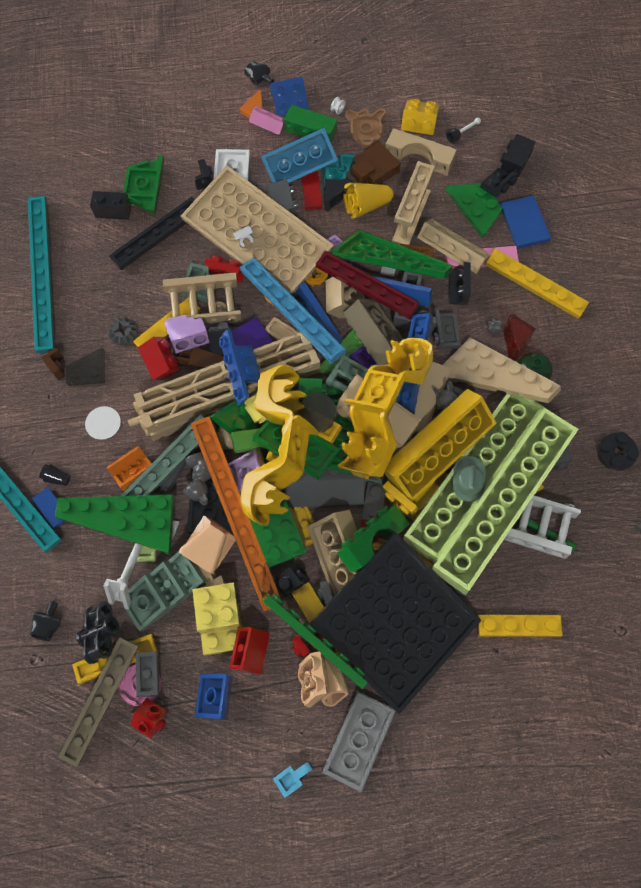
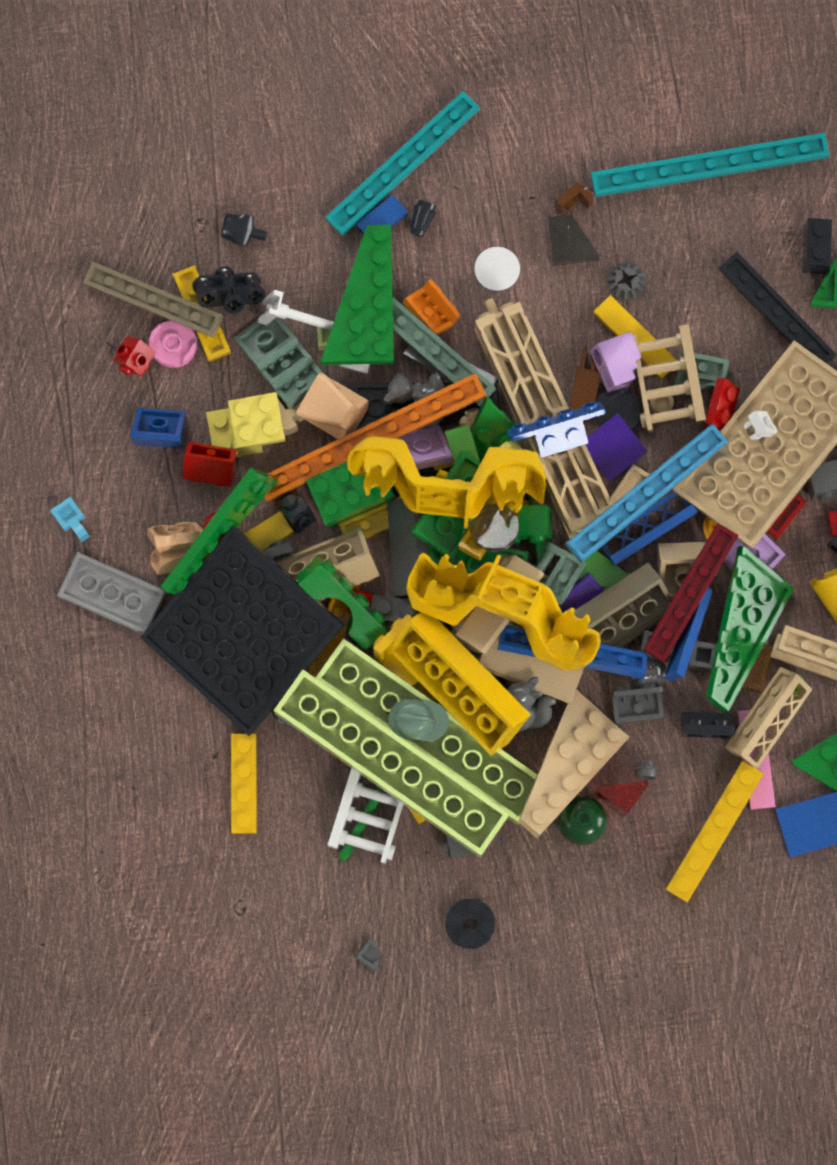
camera: 85 degrees right, 10 degrees up
(147, 674) = (182, 350): dark grey plate -> none
(158, 358) = (580, 329): red brick -> none

